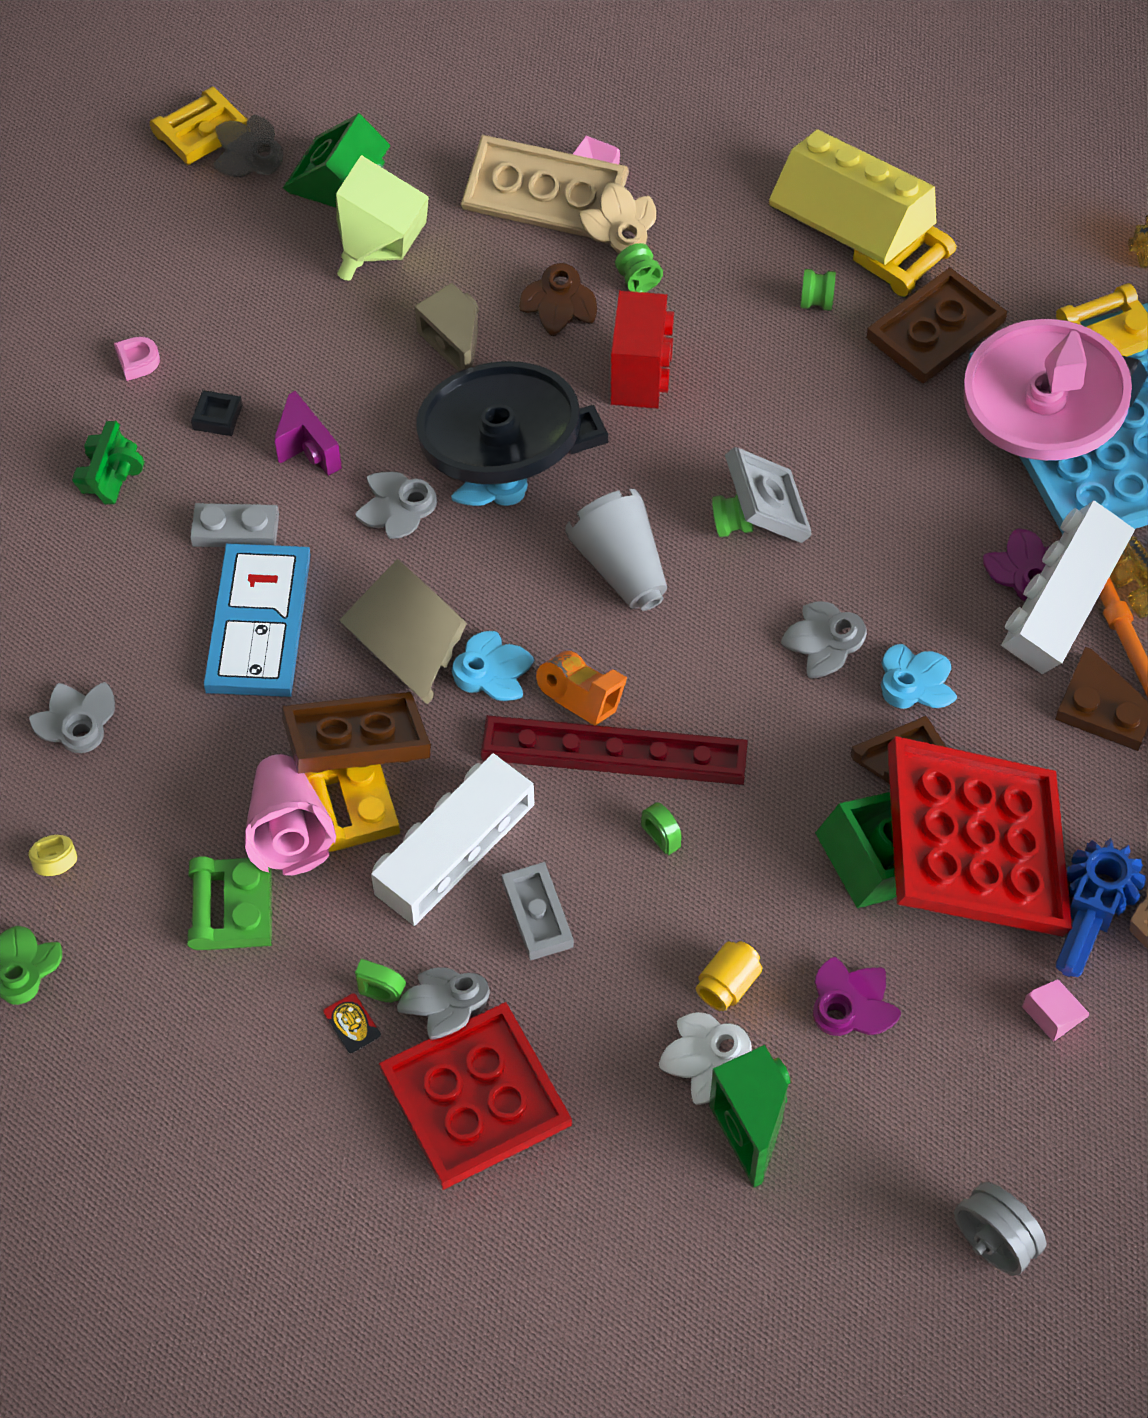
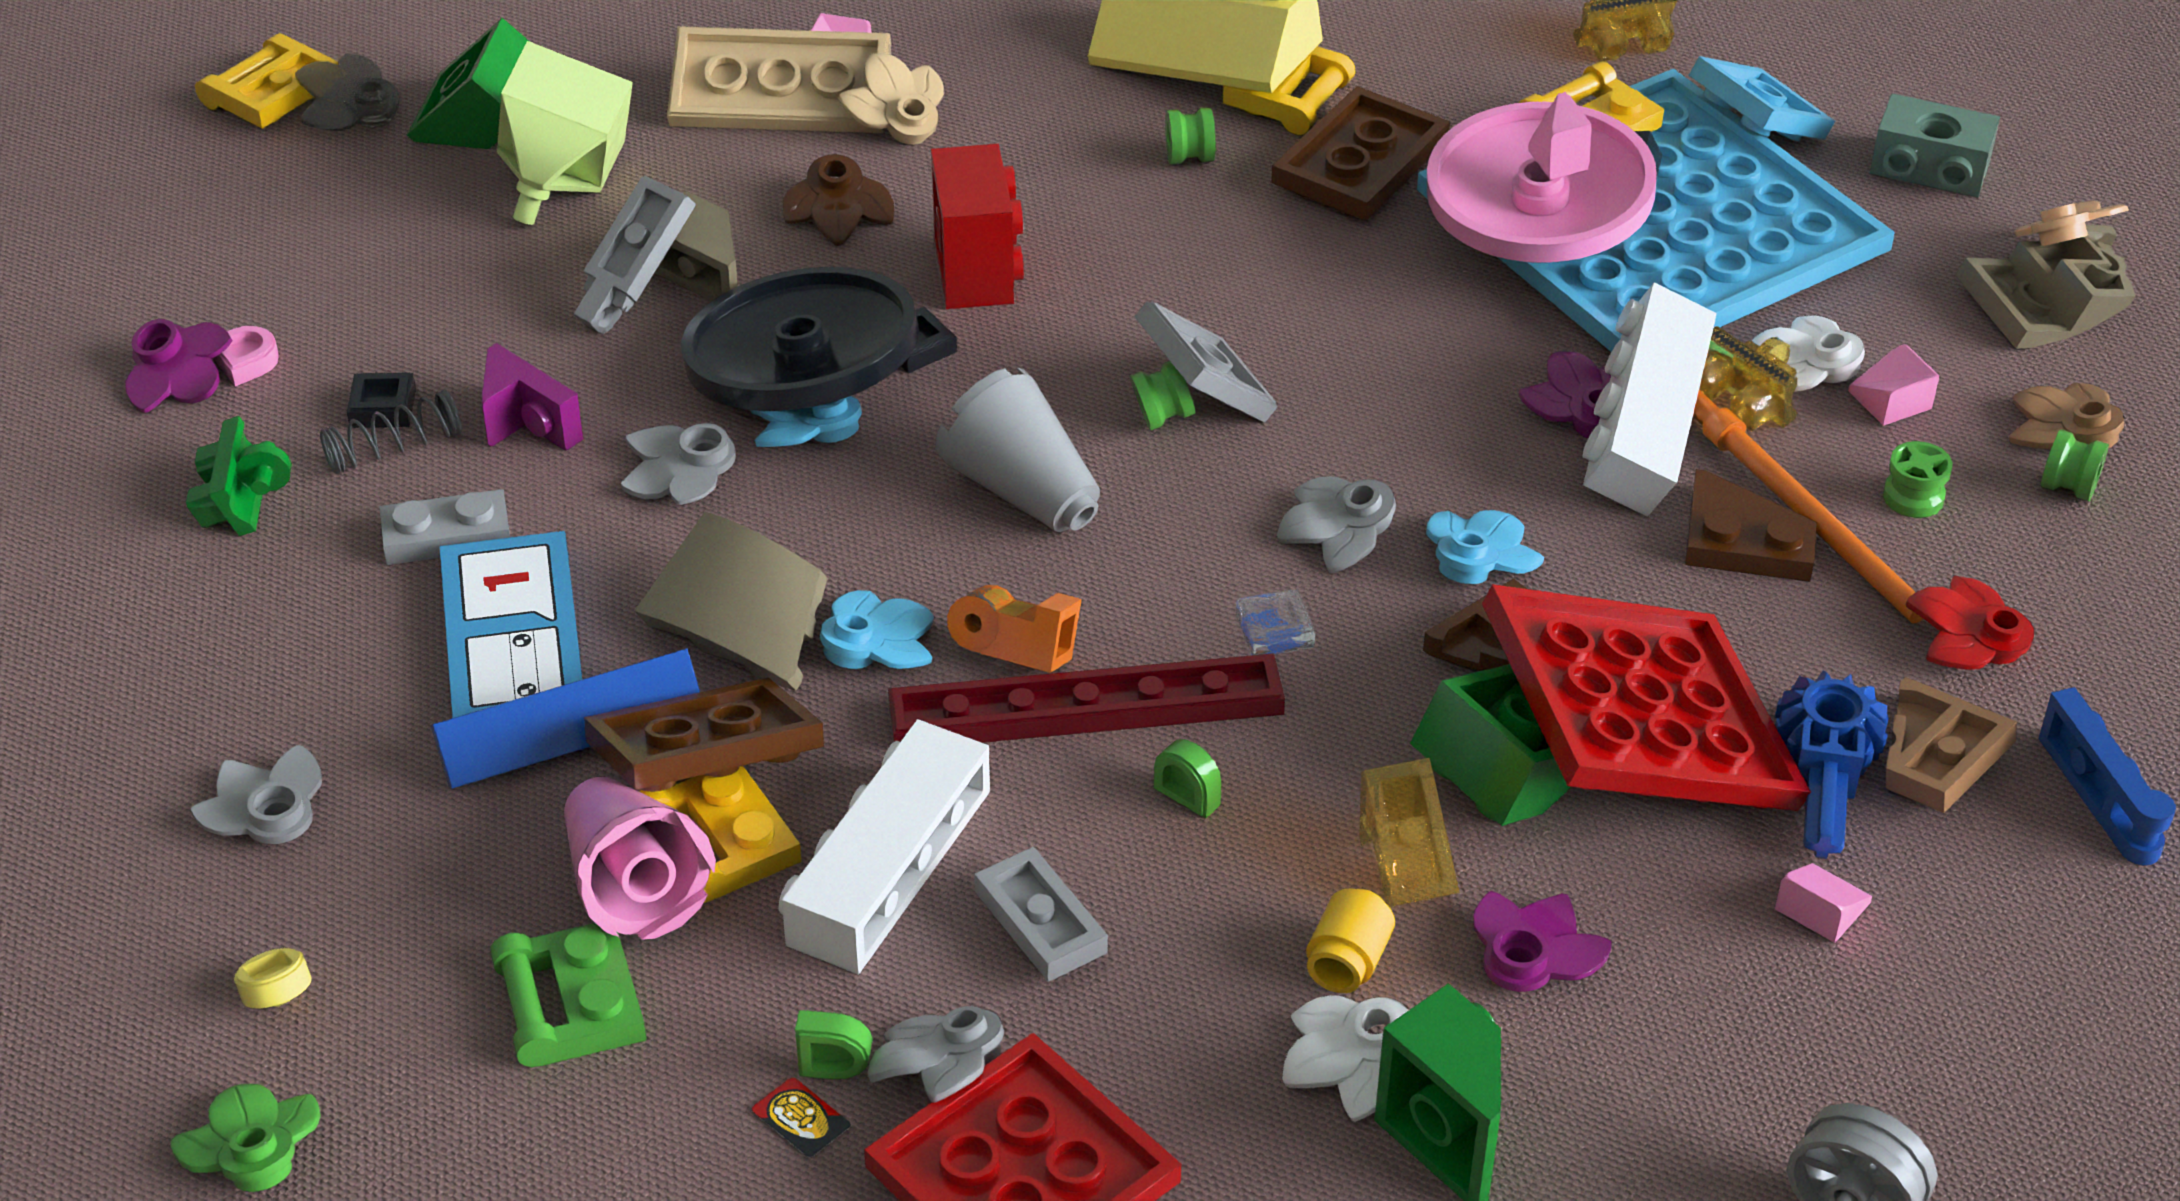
camera: 15 degrees left, 15 degrees down
(89, 358) = (174, 363): none -> magenta plate
(176, 448) = (444, 408): none -> dark grey piece
(262, 698) = (552, 720): none -> blue tile
(402, 329) = (631, 252): none -> light grey hinge
(639, 268) = (930, 133): bright green wheel -> none
(757, 713) = (1275, 622): none -> clear tile
(788, 906) = (1407, 831): none -> clear yellow slope

